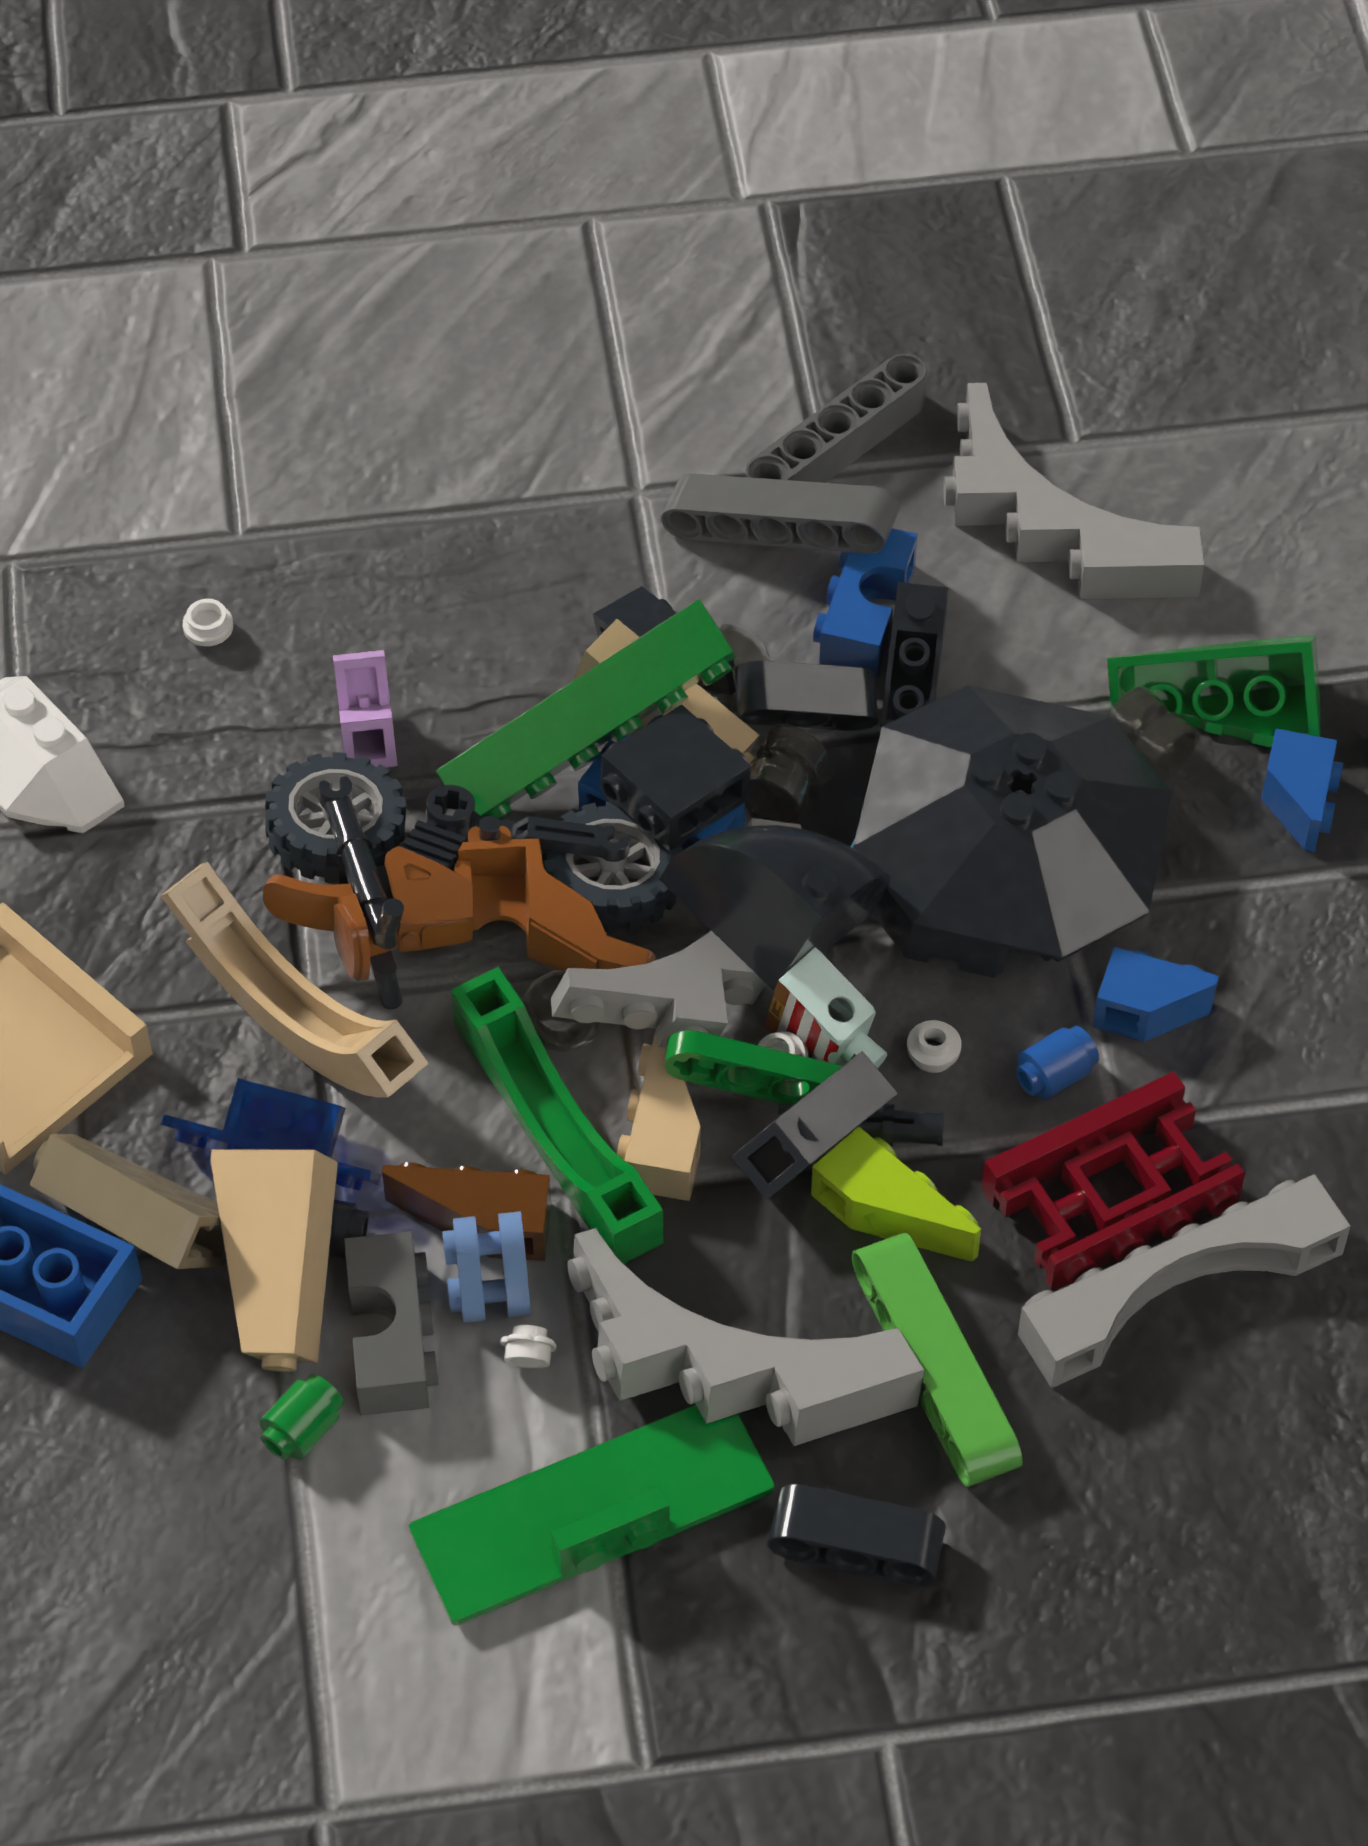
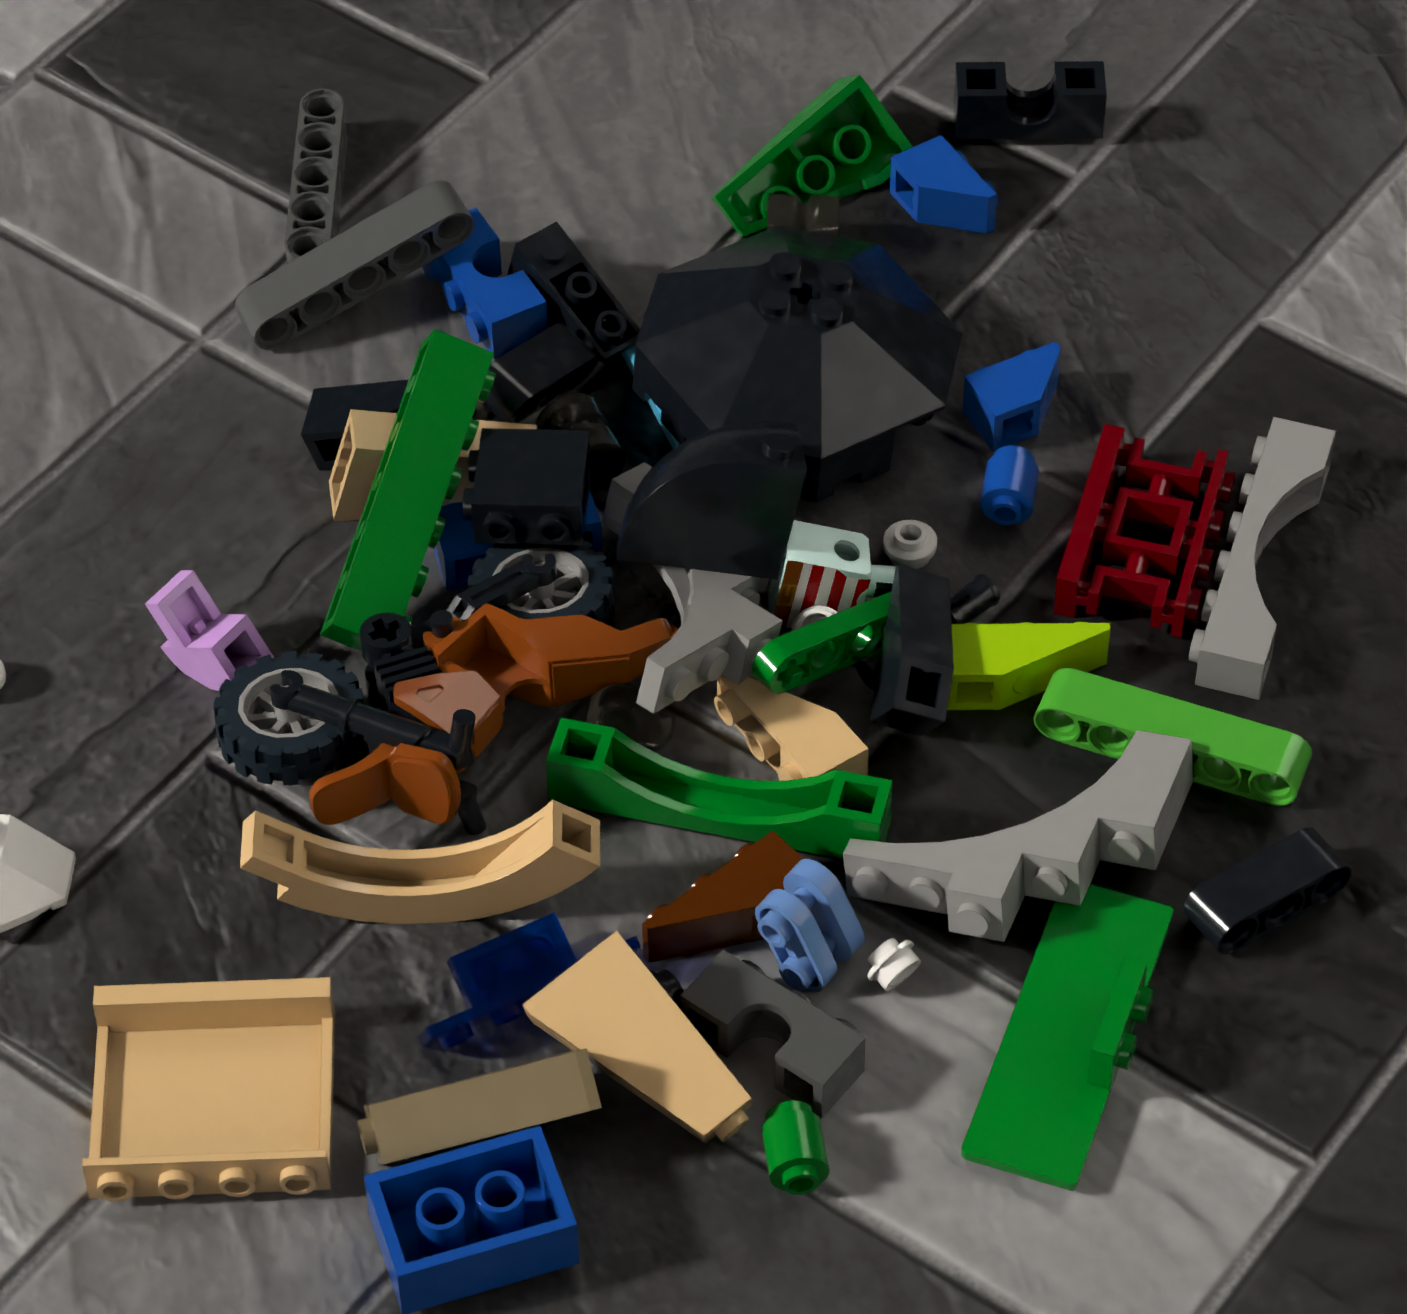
camera: 45 degrees left, 5 degrees down
(1103, 550) = (548, 142): light grey arch -> none

